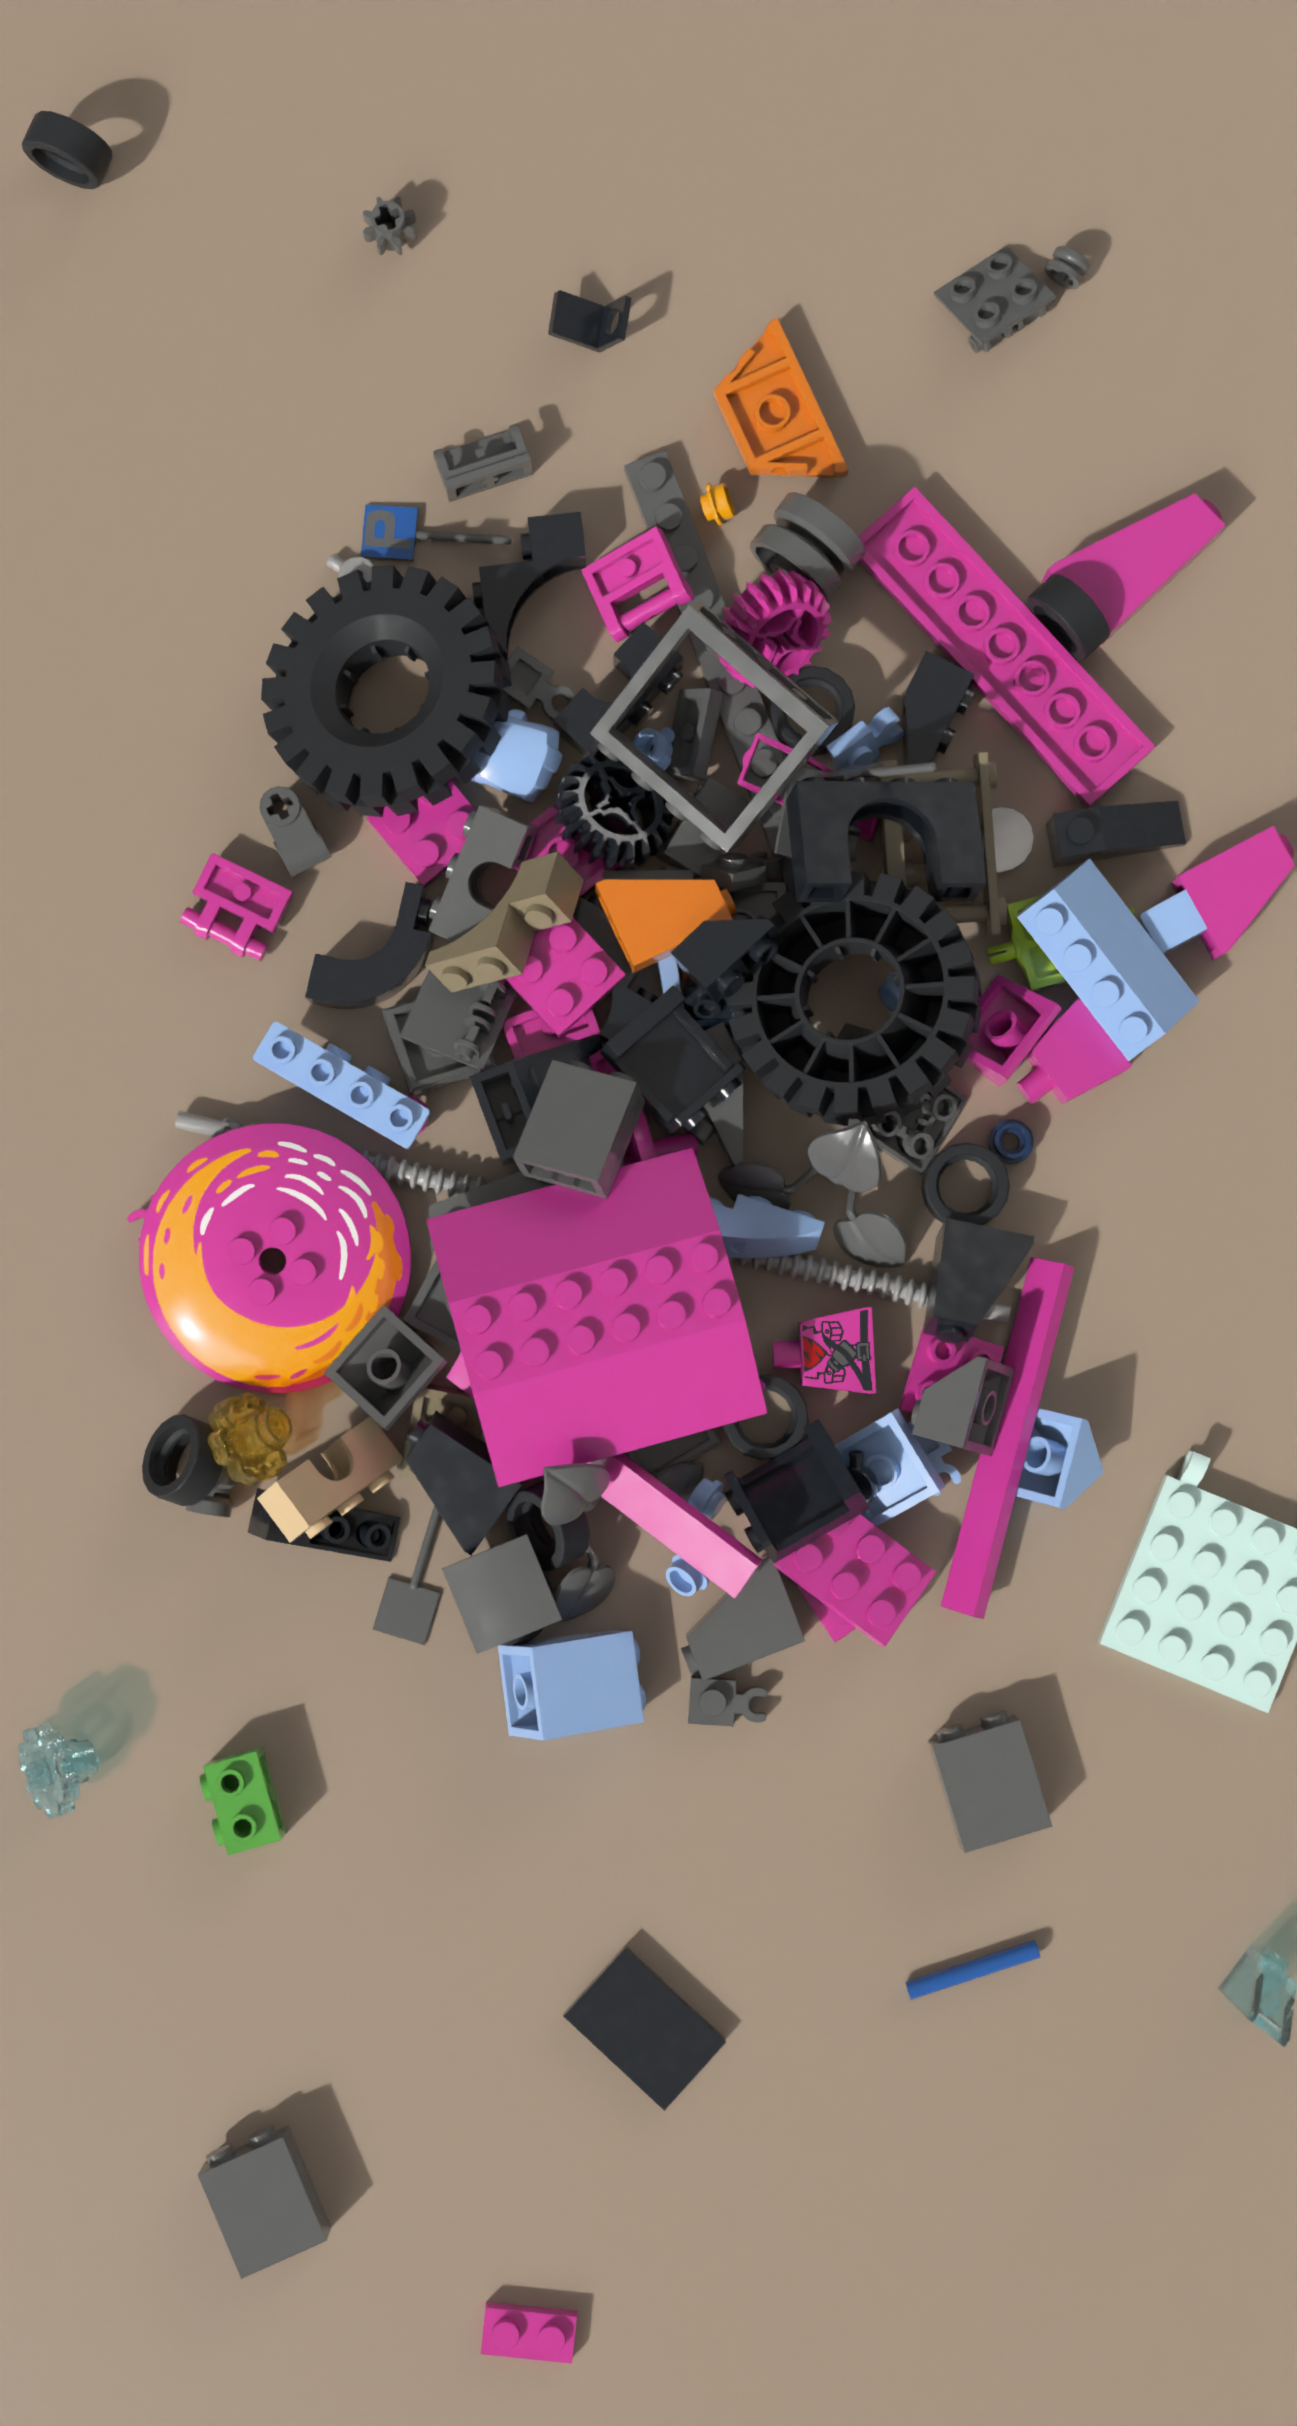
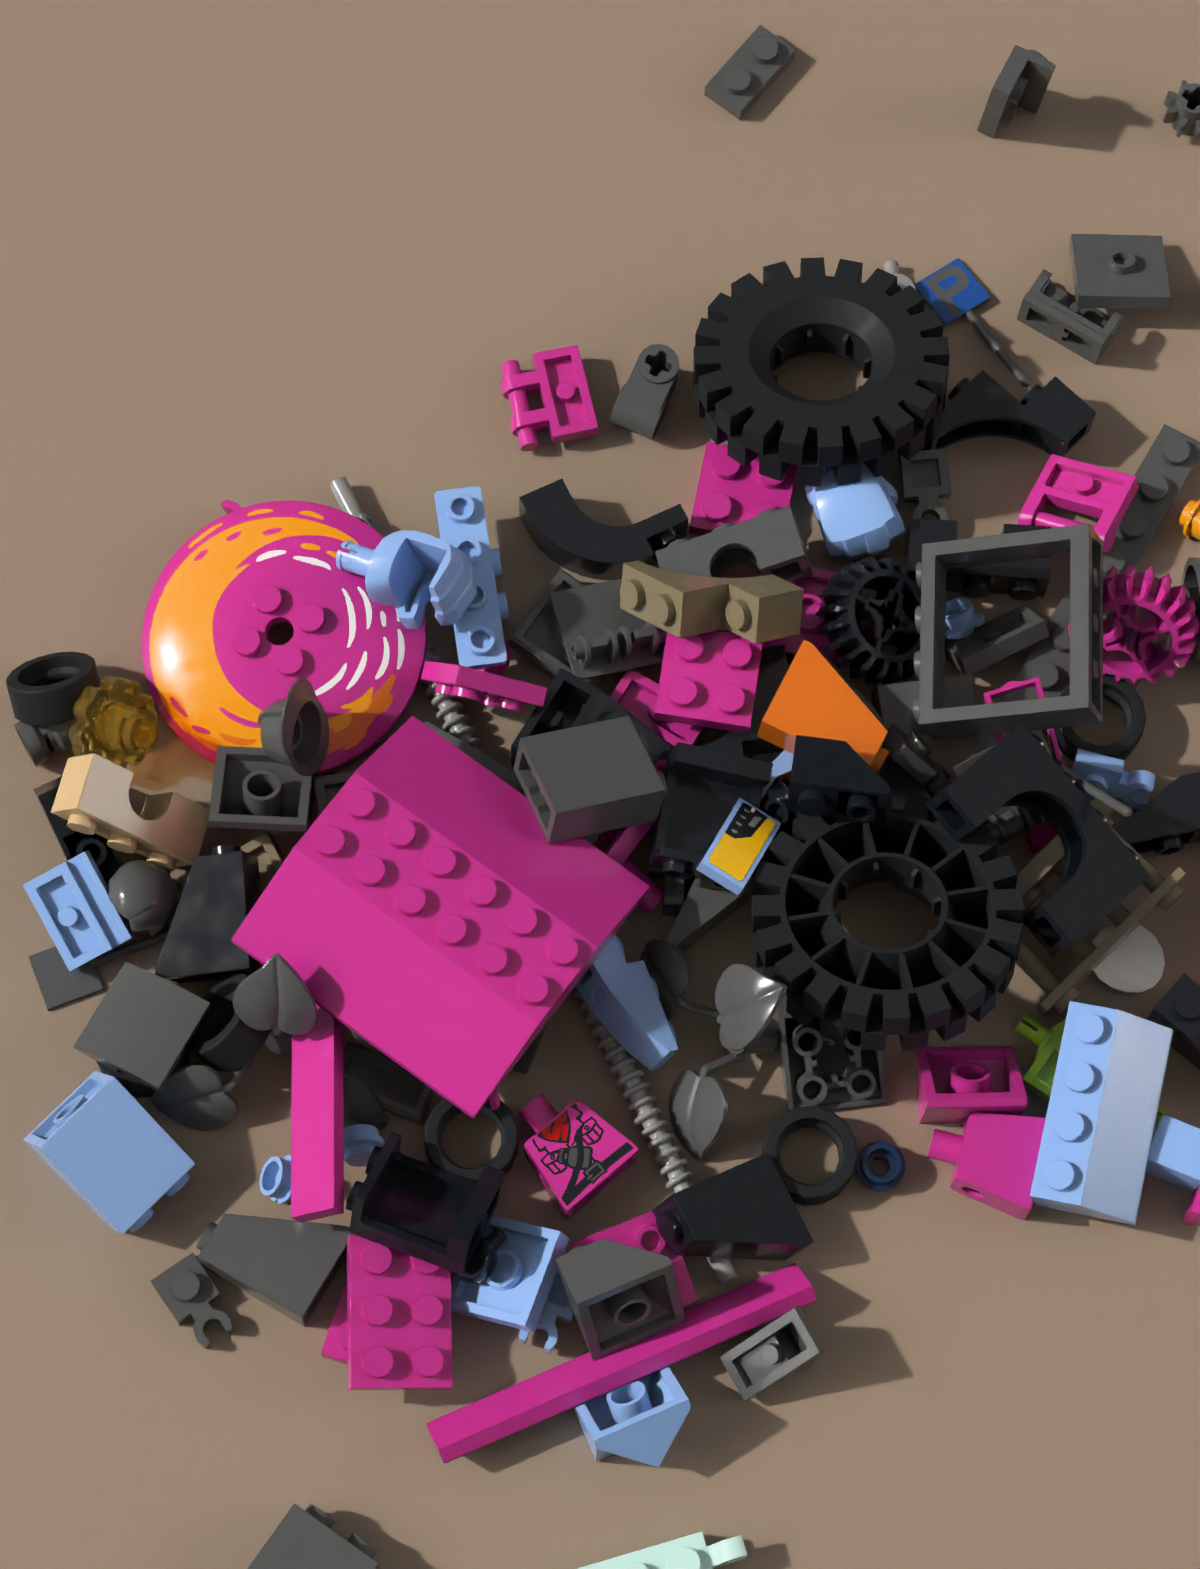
camera: 50 degrees right, 15 degrees down
(84, 534) = (749, 72): none -> dark grey plate
(267, 336) = (1018, 85): none -> dark grey bracket
(308, 1132) = (409, 572): none -> light blue piece
(365, 1311) = (296, 729): none -> dark grey piece
(372, 1571) = (78, 910): none -> light blue plate
(399, 1515) = (144, 896): none -> dark grey hair
(436, 1143) = (483, 686): none -> dark pink plate
(478, 394) = (1119, 271): none -> dark grey plate
(716, 1059) = (738, 846): none -> slope
(1087, 1329) = (772, 1354): none -> dark grey slope

